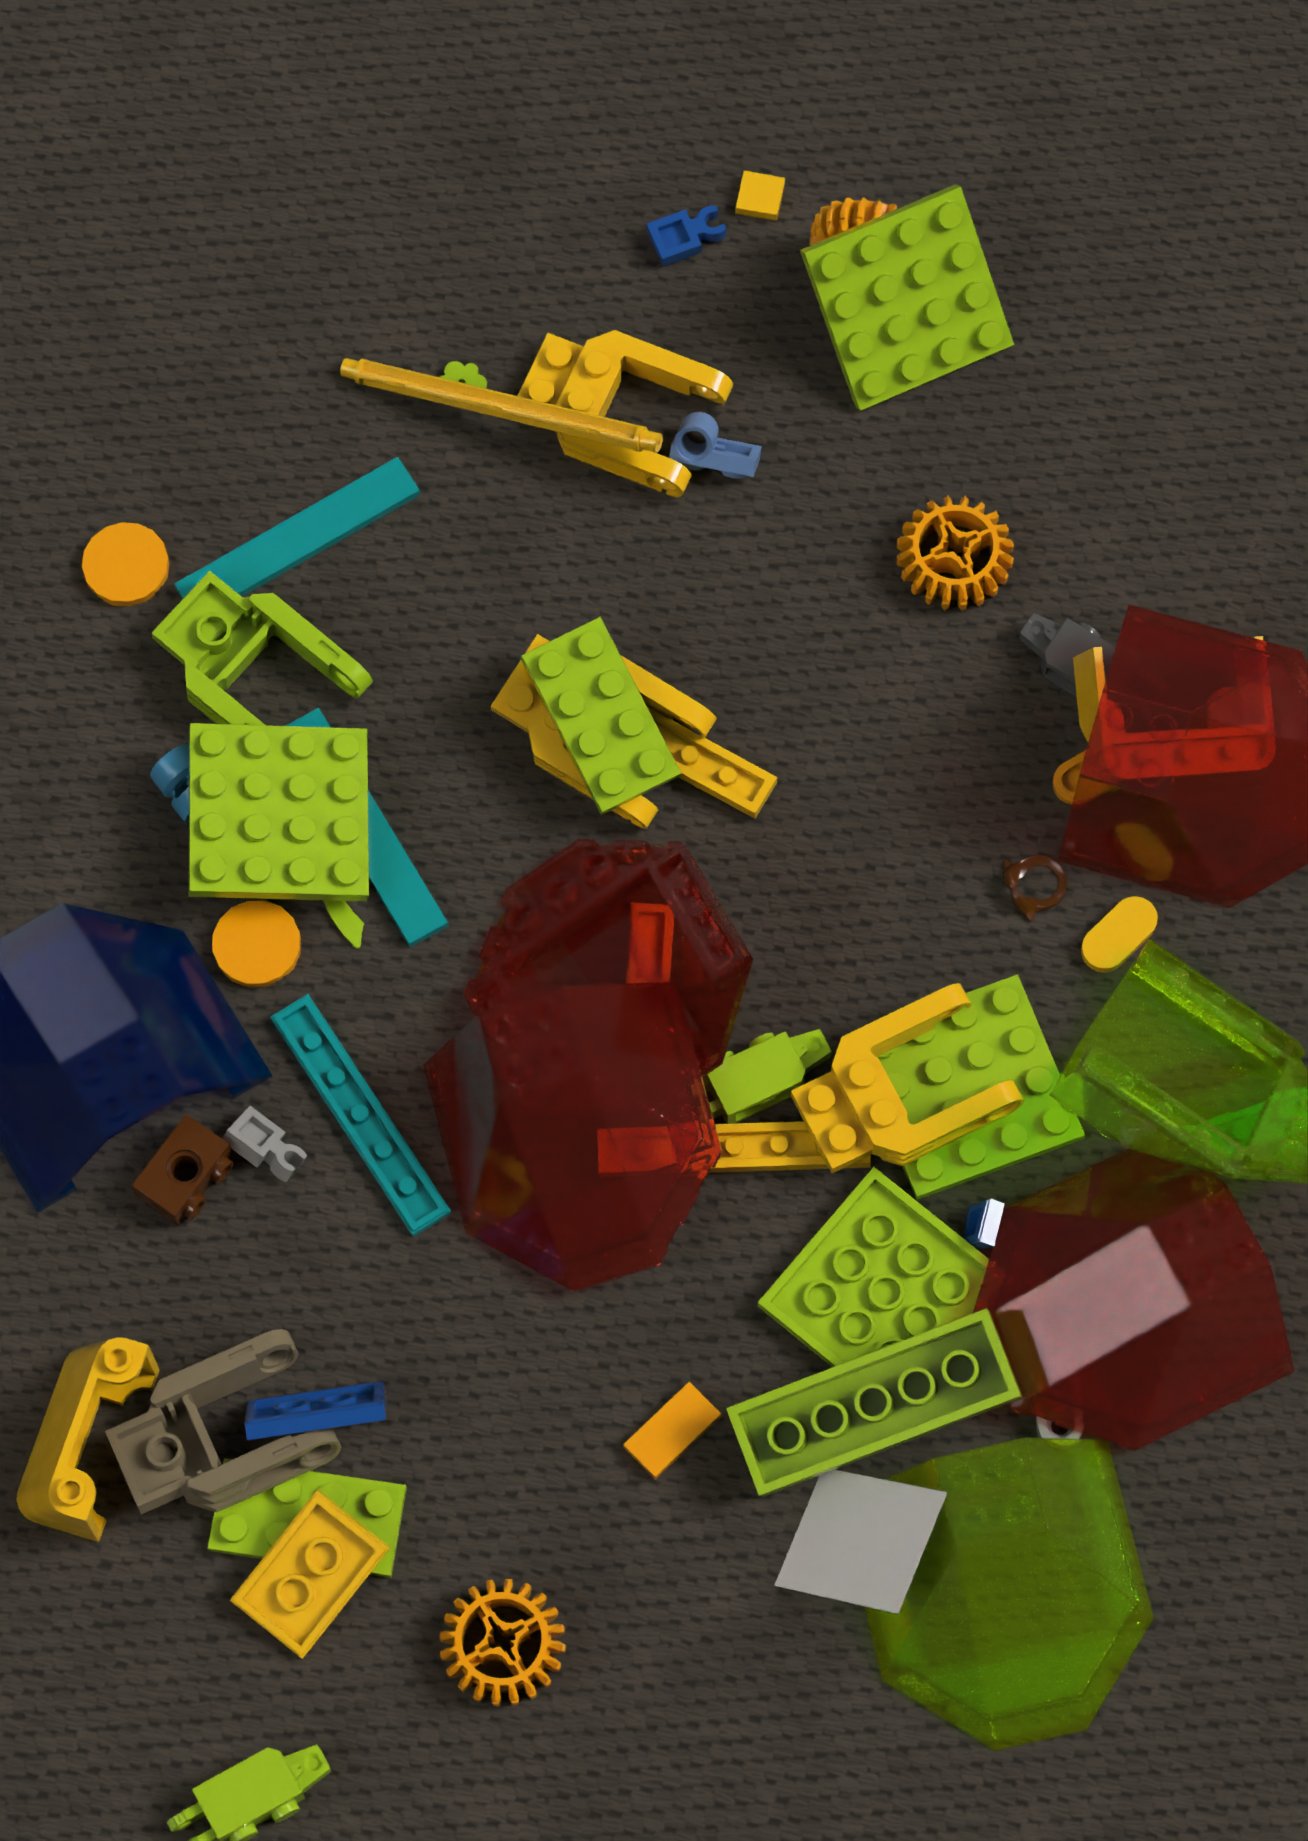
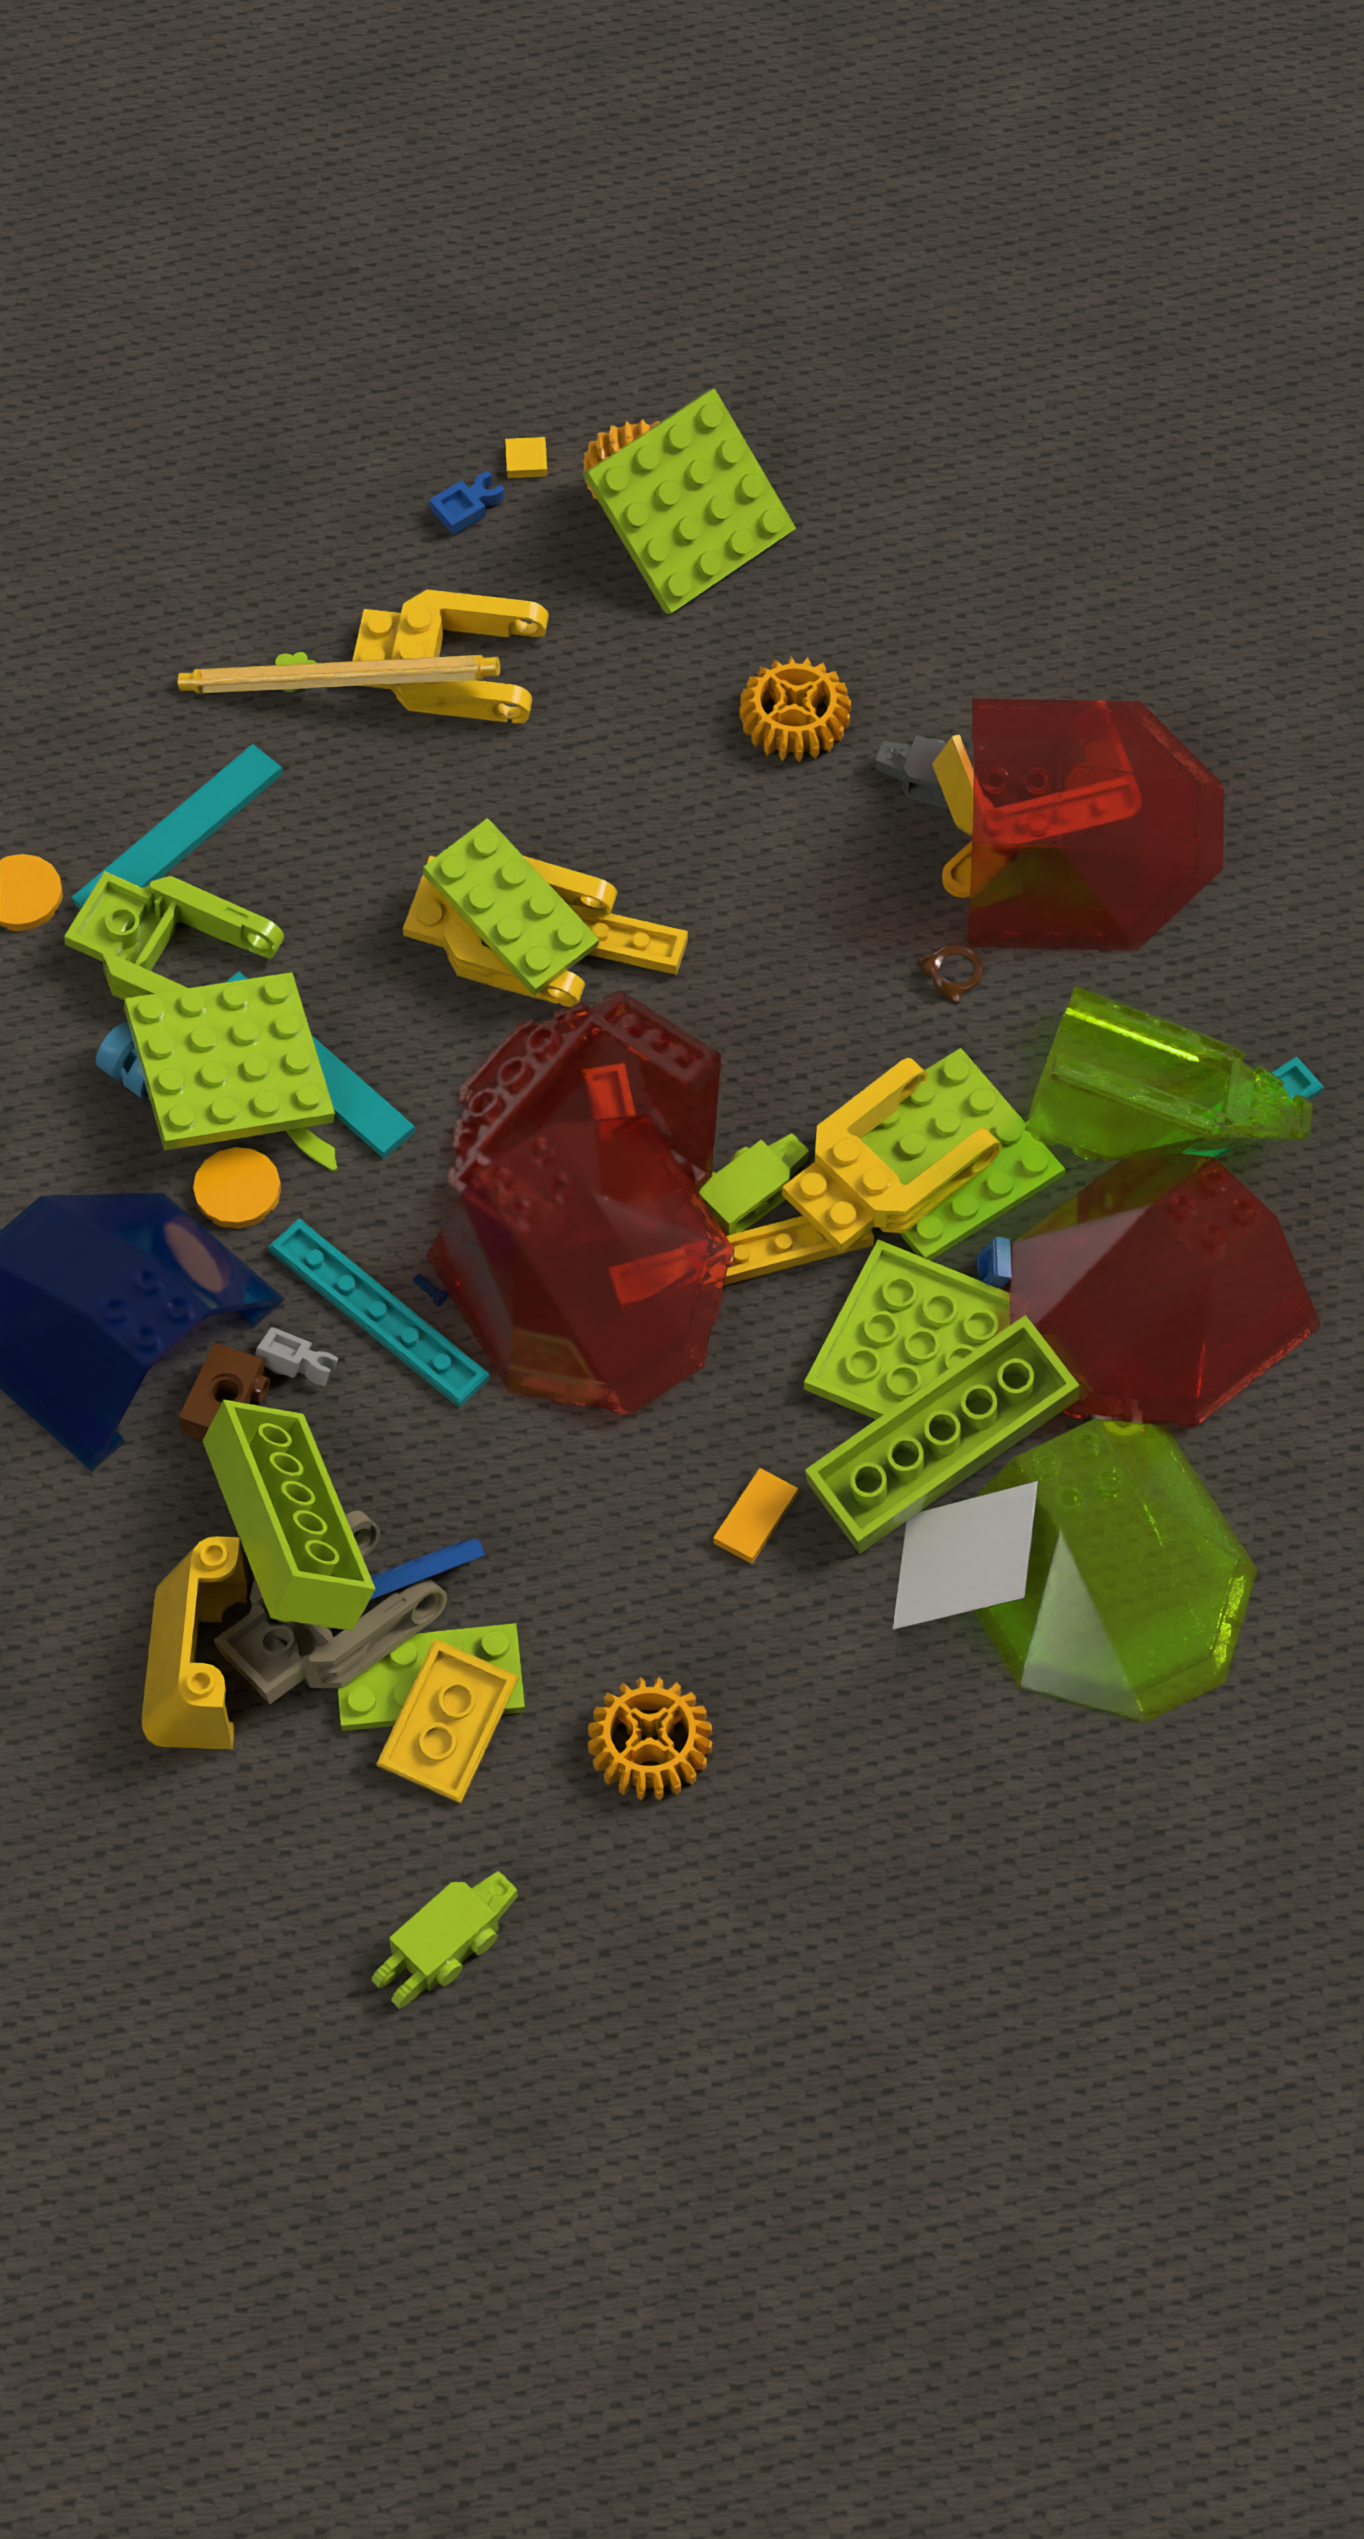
camera: 15 degrees left, 10 degrees down
(203, 1330) = (288, 1516): none -> lime brick
(418, 1102) = (437, 1295): none -> clear blue piece
(730, 457) = (565, 676): medium blue plate -> none
(1119, 934) = (1043, 994): yellow tile -> none

